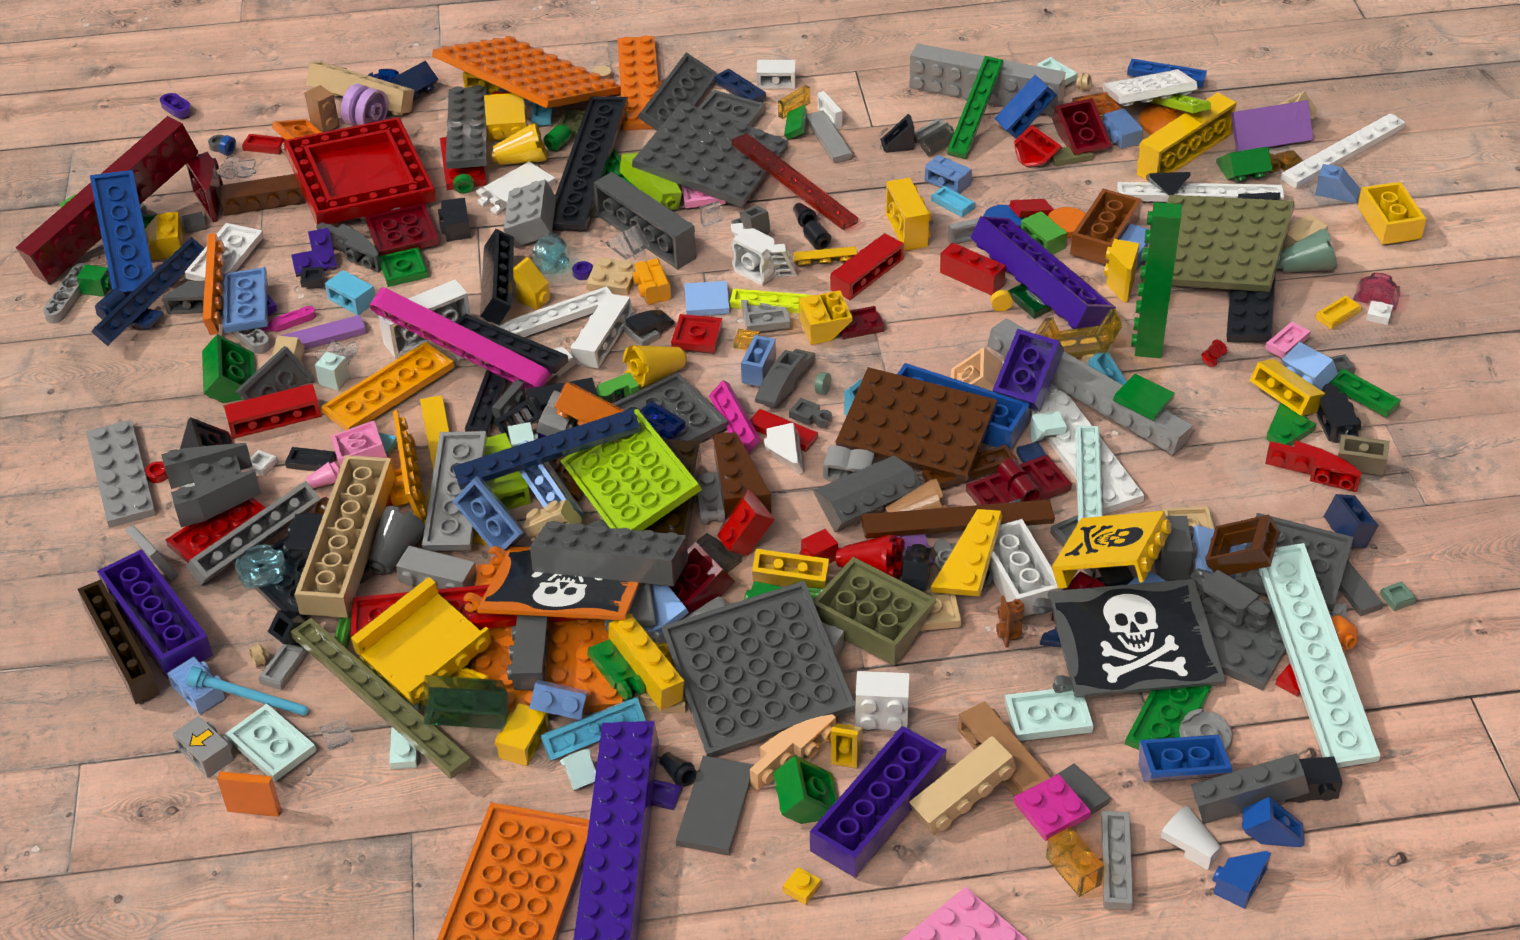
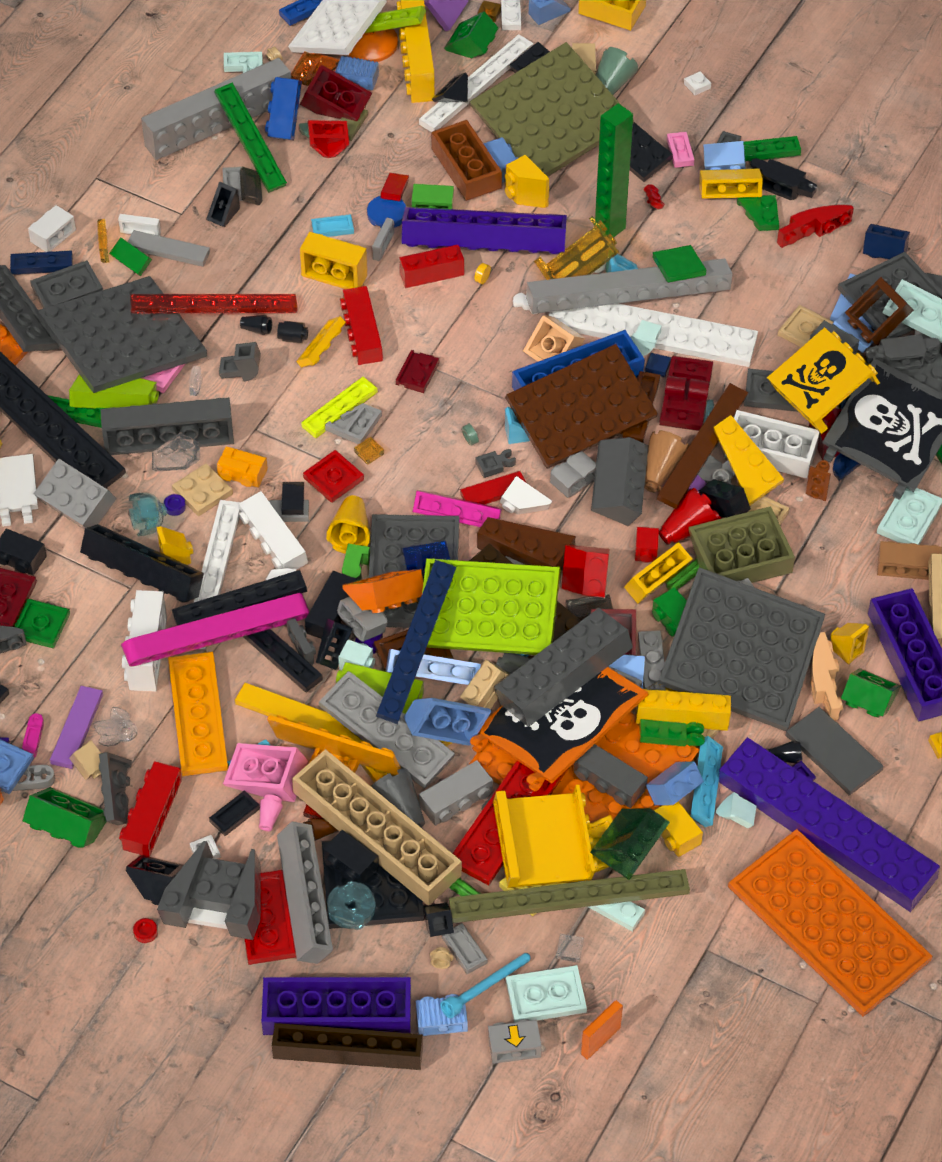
camera: 55 degrees left, 10 degrees up
(120, 473) = (120, 958): light grey plate -> none
(152, 552) = (254, 974): light grey tile -> none
(332, 370) = (142, 741): light aqua brick -> none
(350, 292) = (45, 676): medium azure brick -> none
(706, 298) = (293, 446): light blue tile -> none
(758, 360) = (412, 456): medium blue brick -> none
(759, 256) = (287, 381): white slope -> none
(782, 376) = (444, 452): dark grey slope -> none
(823, 316) = (398, 386): yellow slope -> none
(881, 700) = (834, 595): white brick -> none
(948, 173) = (302, 207): medium blue brick -> none
(1028, 302) = (496, 259): dark green tile -> none
(1029, 368) = (598, 305): dark purple brick -> none
(1067, 218) = (428, 173): orange tile -> none
(1088, 472) = (718, 347): light aqua tile -> none
(1338, 312) = (675, 103): yellow tile -> none
(1365, 453) = (834, 190): dark tan brick -> none
(1378, 288) = (675, 68): clear pink cylinder -> none

